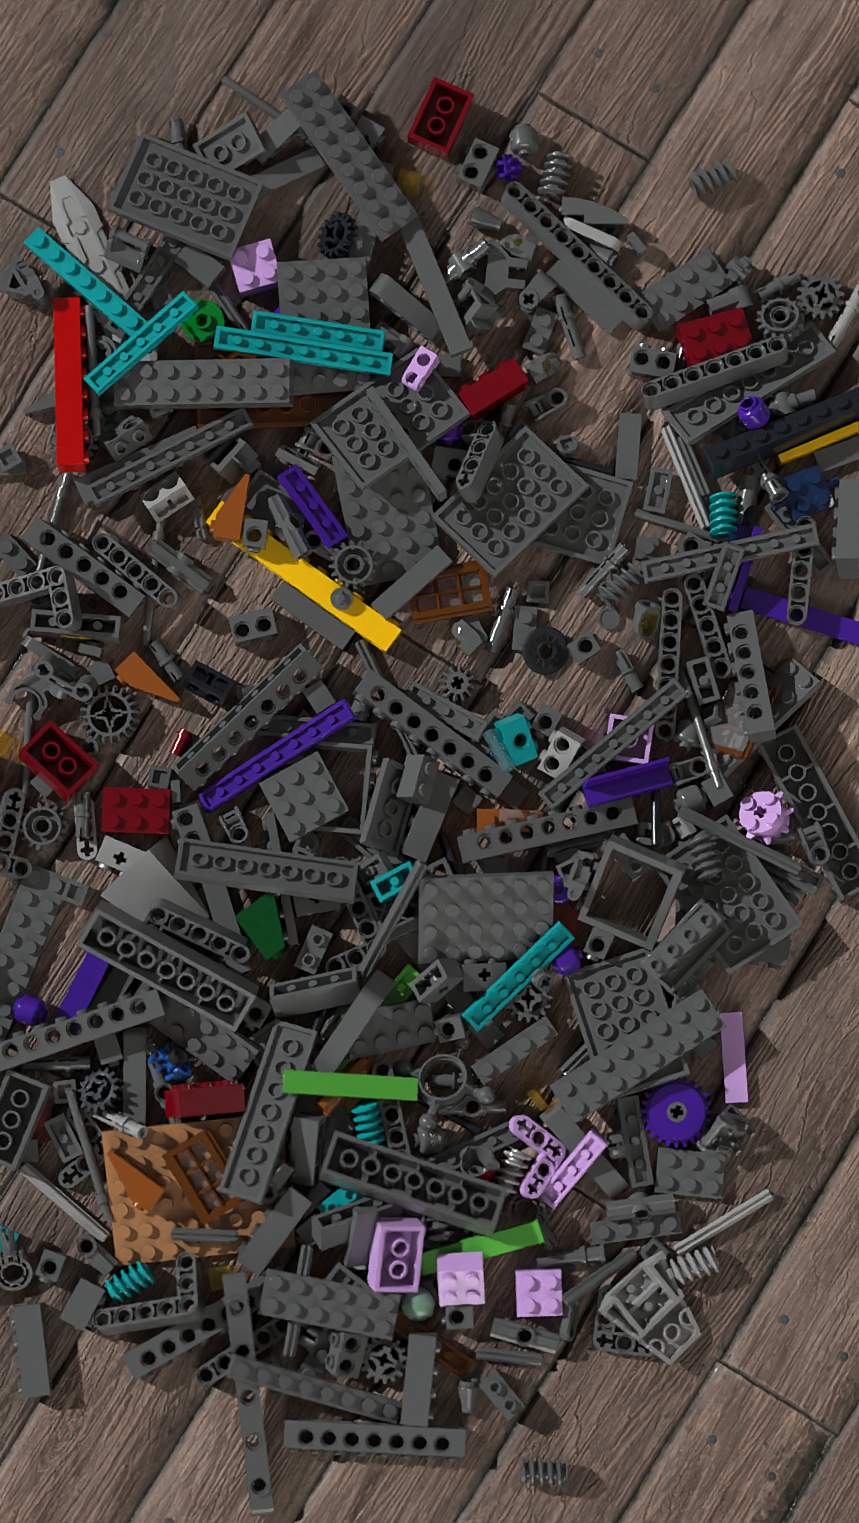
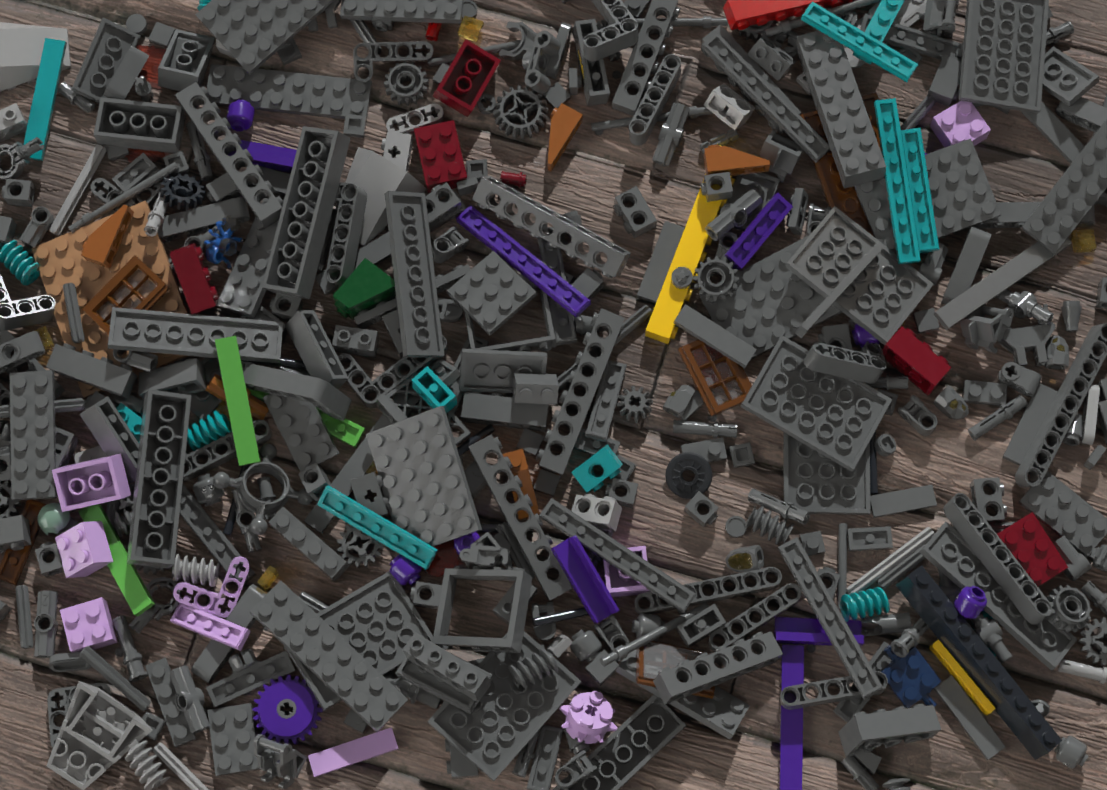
camera: 75 degrees right, 10 degrees down
(82, 814) = (425, 111): dark grey pin -> none
(166, 660) = (583, 148): dark grey pin -> none
(207, 310) = (904, 90): green plate -> none
(208, 683) = (572, 185): black brick -> none
(337, 236) = (1013, 188): black gear -> none
(360, 1236) = (100, 446): dark grey tile -> none
(392, 918) = (399, 396): dark grey axle -> none
(420, 368) = (913, 287): lavender leg -> none
(437, 980) = (354, 453): dark grey brick -> none
(478, 1162) = (193, 537): dark grey hat -> none
(498, 751) = (581, 454): clear light blue pin -> none
(546, 983) = (385, 549): dark grey bush -> none
(628, 670) = (692, 556): dark grey axle -> none
(712, 714) = (672, 643): dark grey tile -> none
(724, 576) = (806, 616): dark grey tile -> none
(739, 840) = (558, 699): dark grey axle -> none

